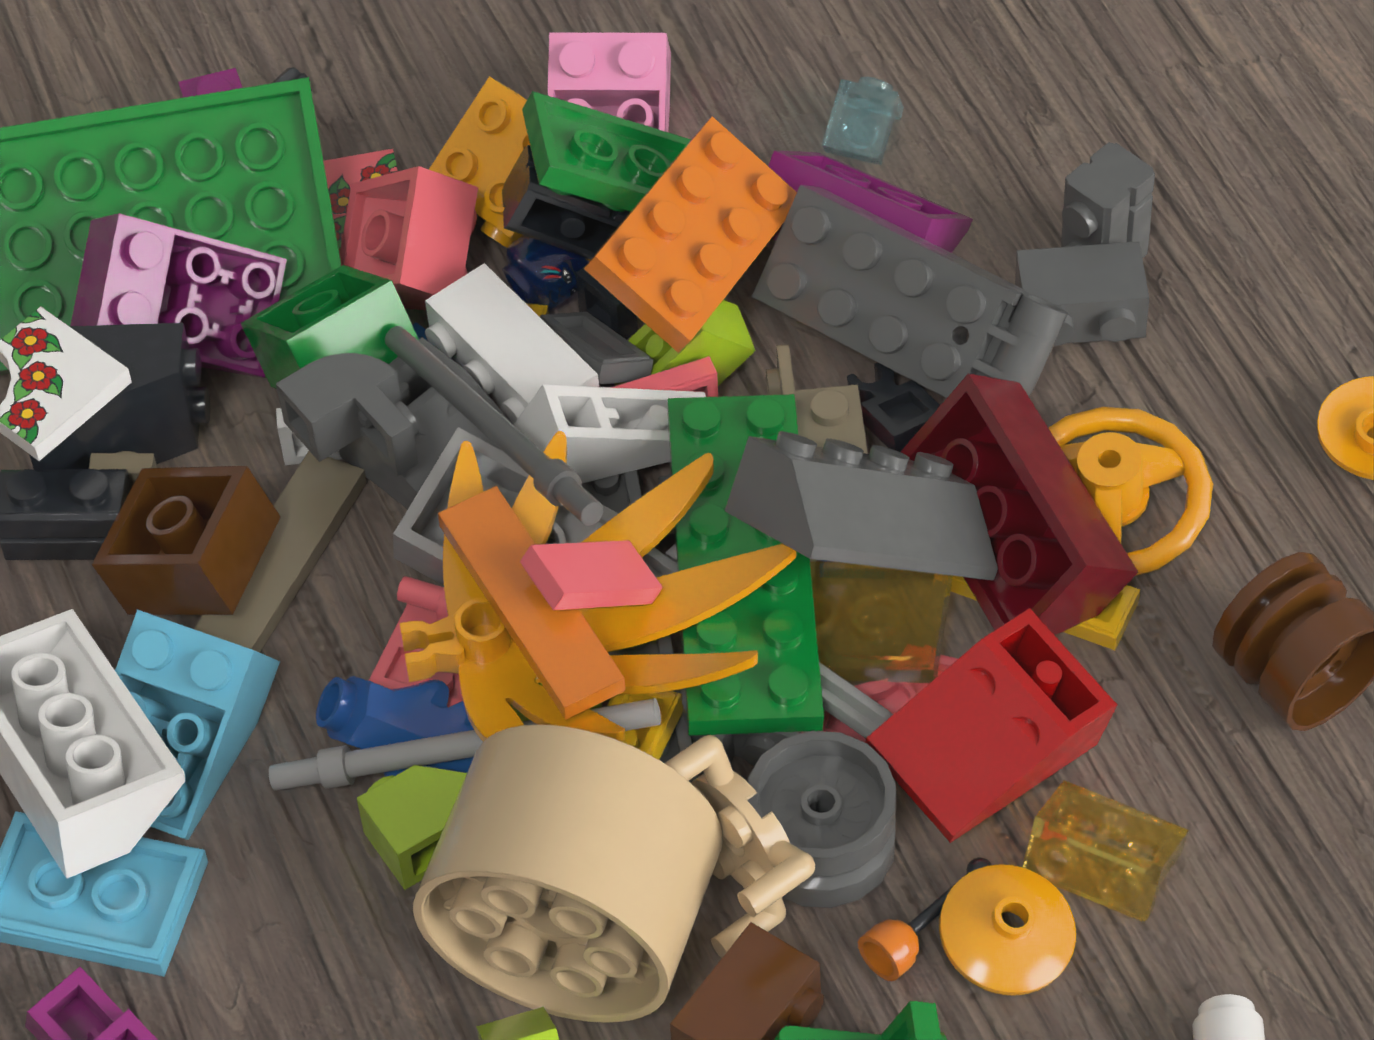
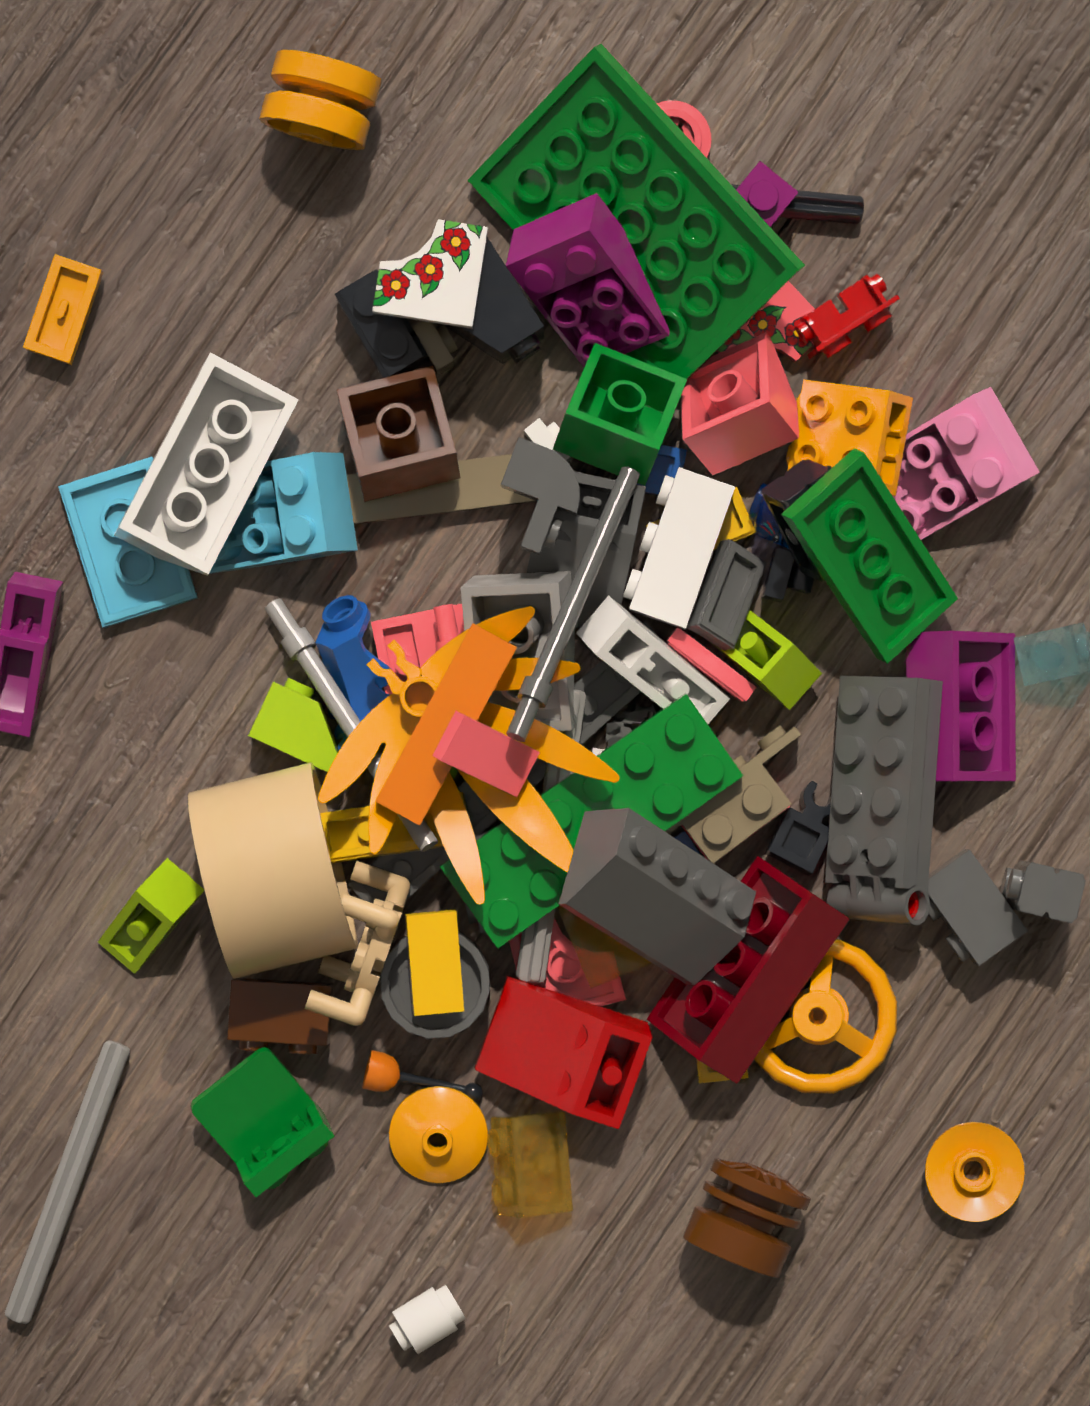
camera: 55 degrees right, 35 degrees up
(389, 132) = (864, 307): none -> red hinge
(693, 234) = (828, 631): orange plate -> none
(798, 772) = (434, 962): none -> yellow tile

